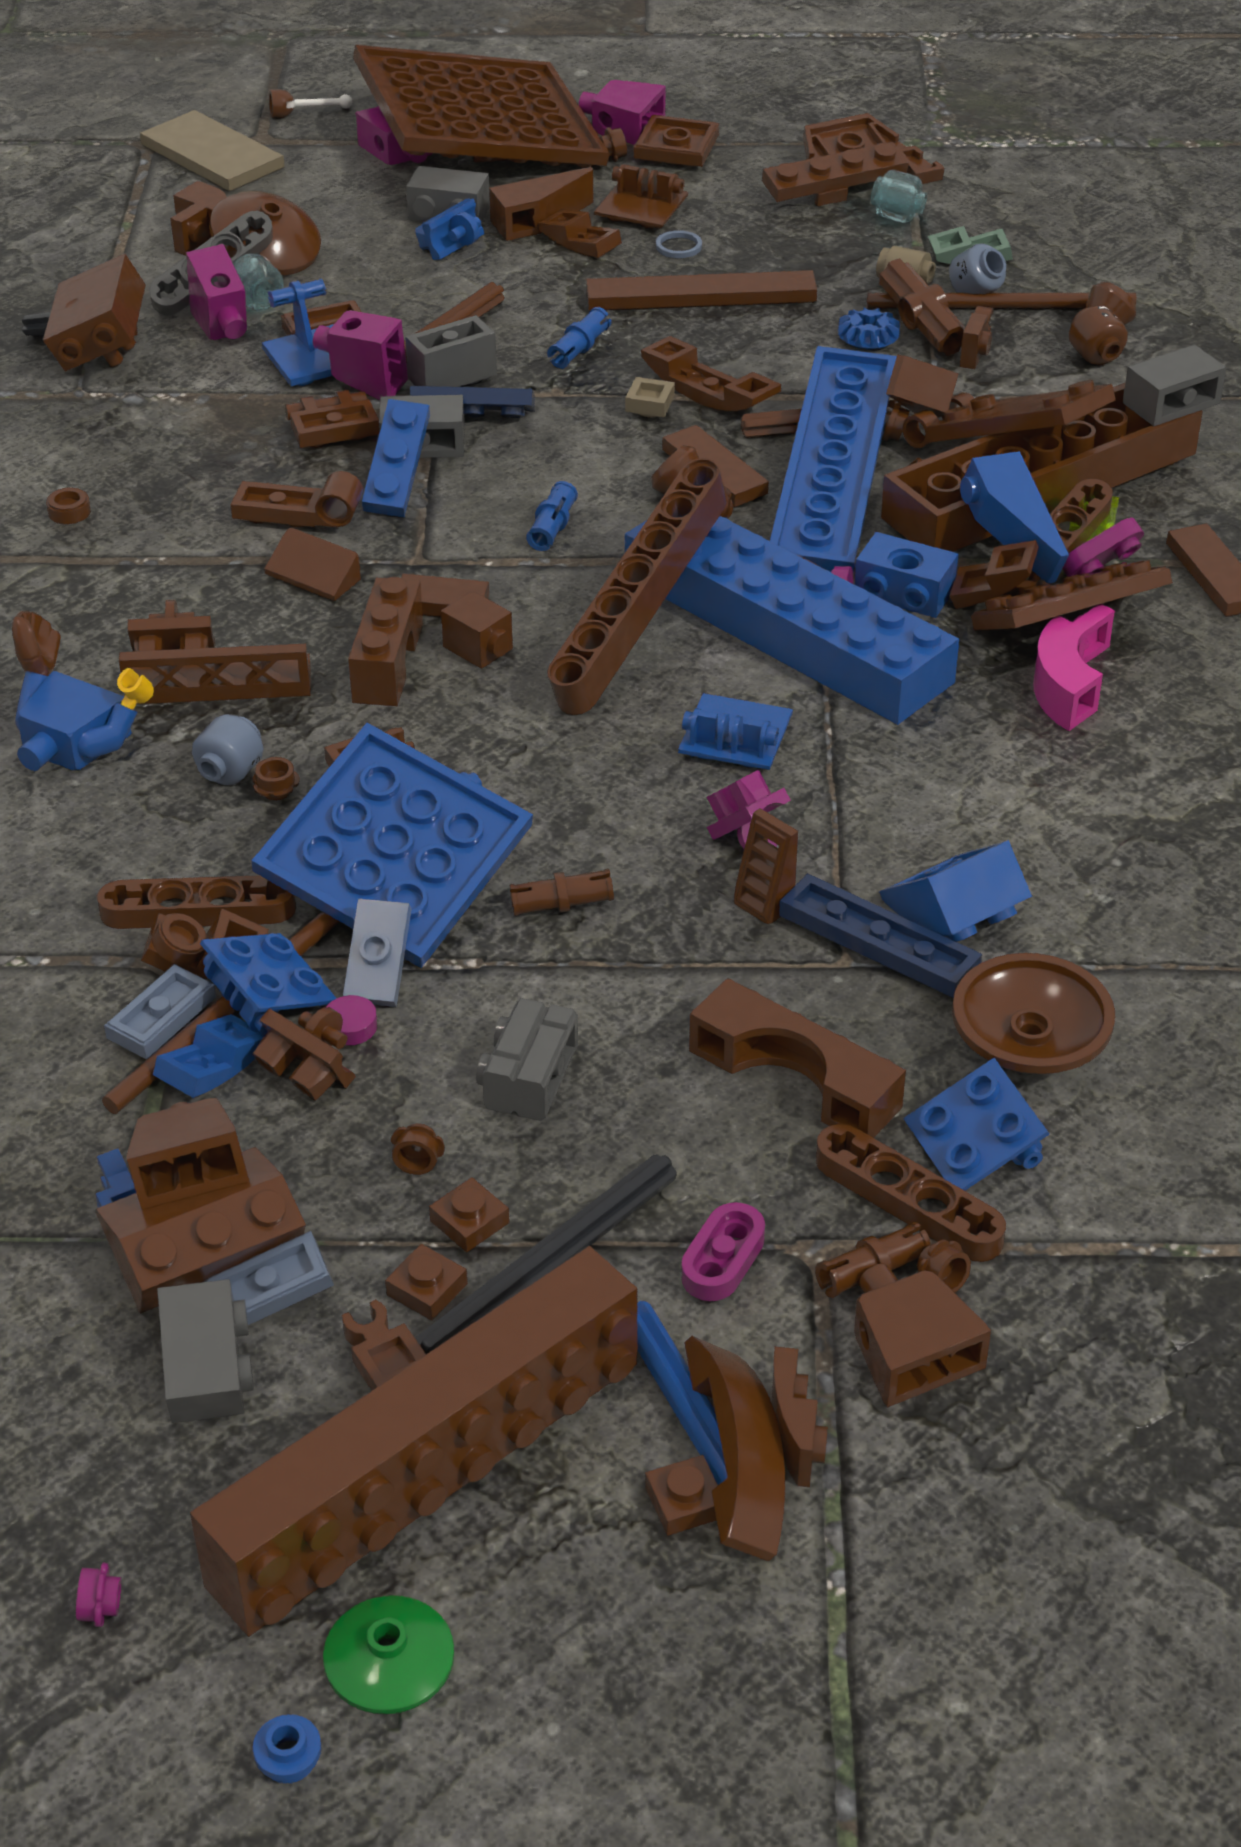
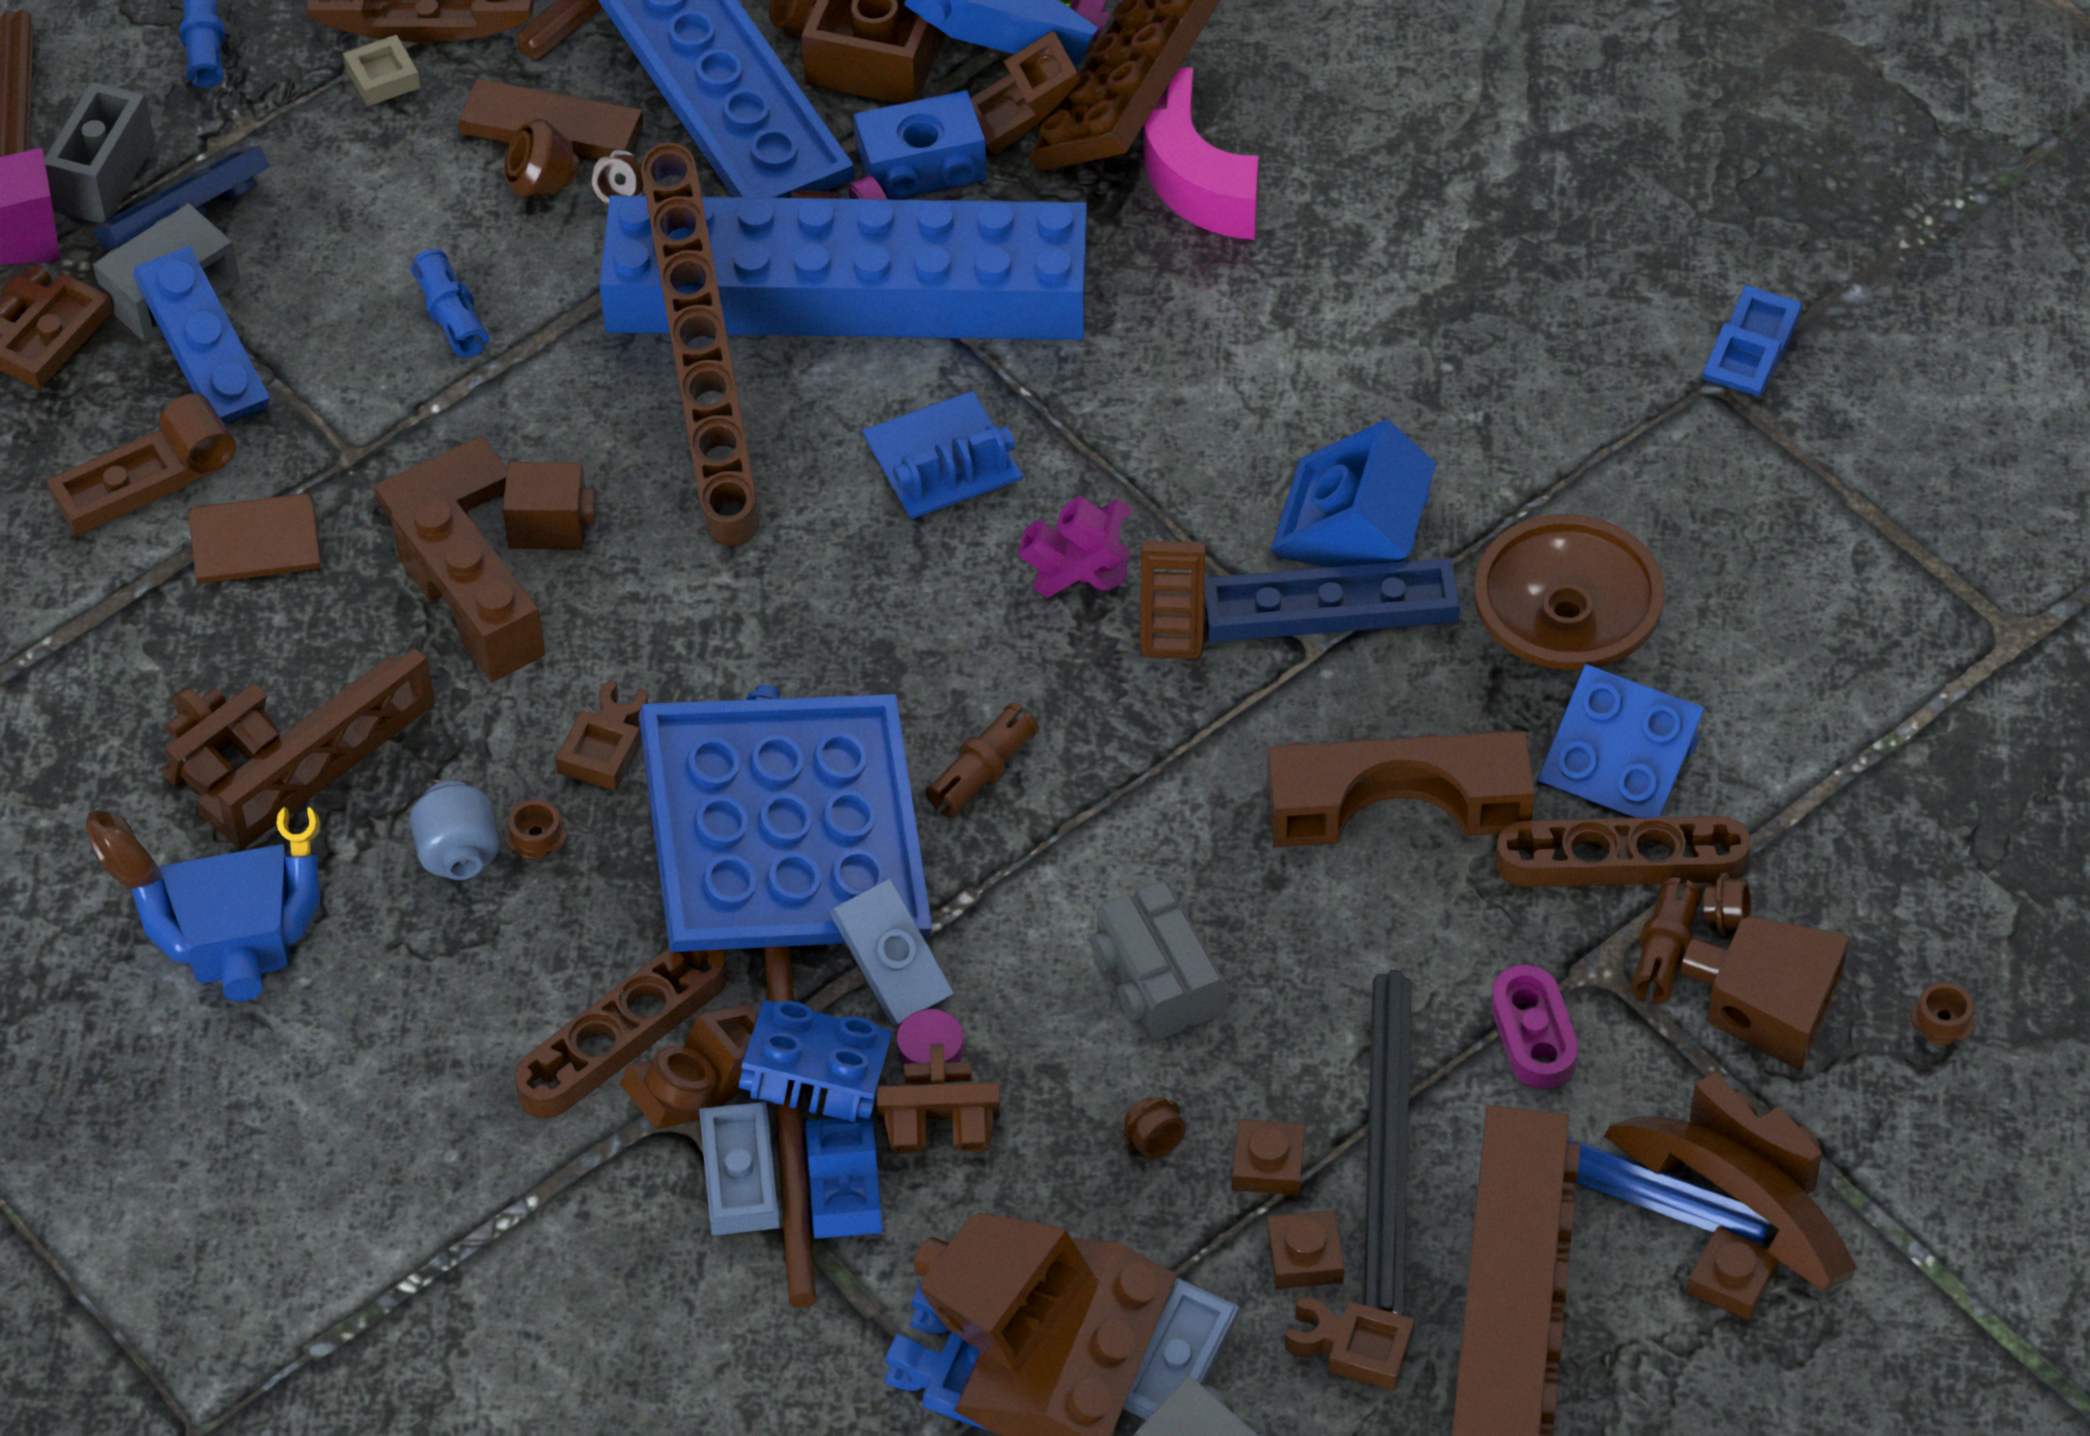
camera: 40 degrees left, 10 degrees up
(1024, 1424) = (1945, 1000): none -> reddish brown plate

